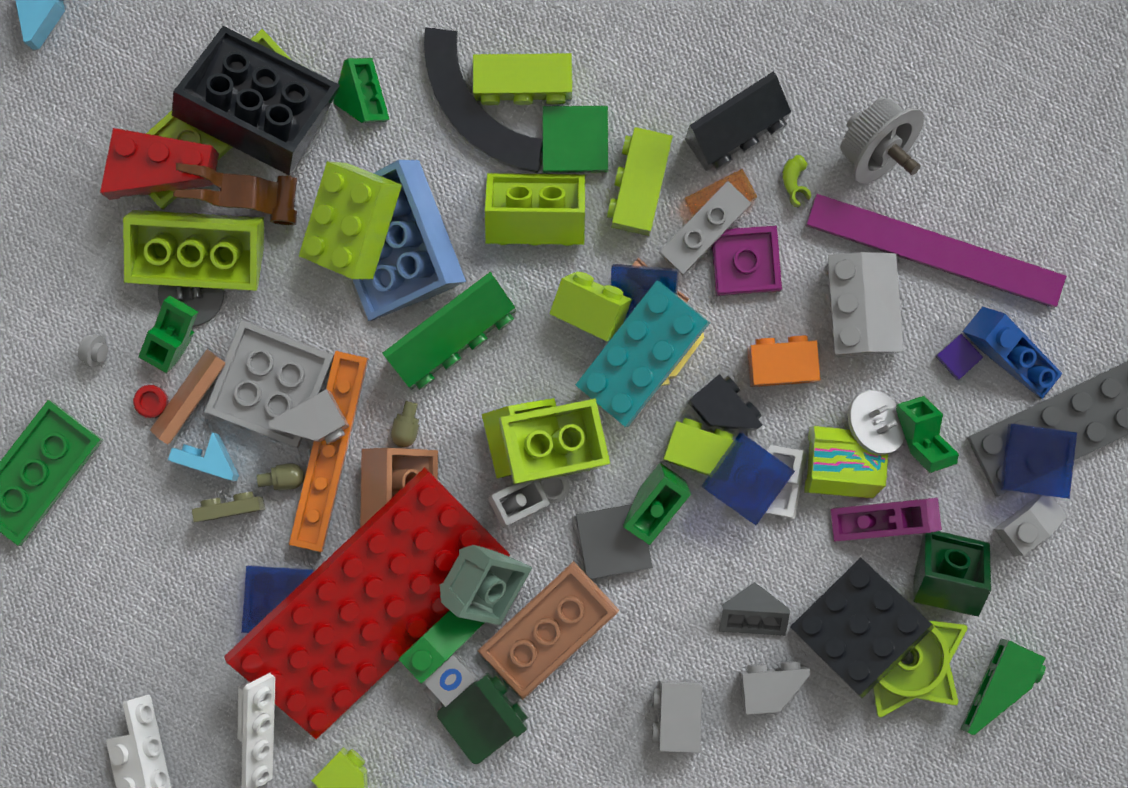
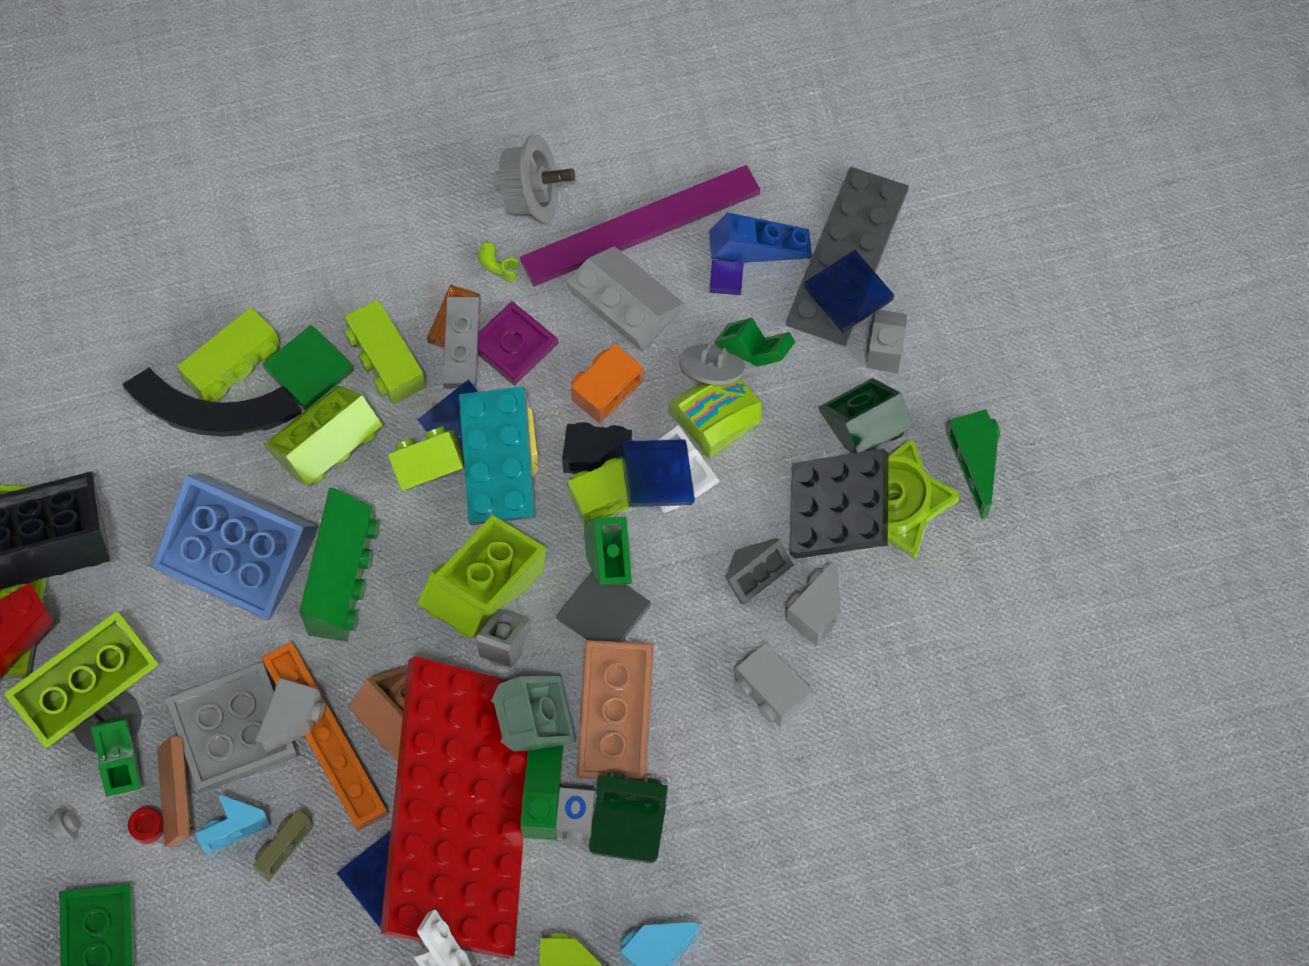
camera: 40 degrees left, 20 degrees down
(245, 192) = (85, 599): reddish brown flag -> none
(282, 477) = (304, 787): olive cylinder -> none
(350, 220) = (187, 549): lime brick -> none
(361, 91) = (112, 467): green slope -> none
(405, 426) = (365, 664): olive cylinder -> none
(555, 488) = (523, 607): light grey plate -> none
(739, 123) = (417, 254): black slope -> none
(886, 519) = (784, 421): magenta slope -> none

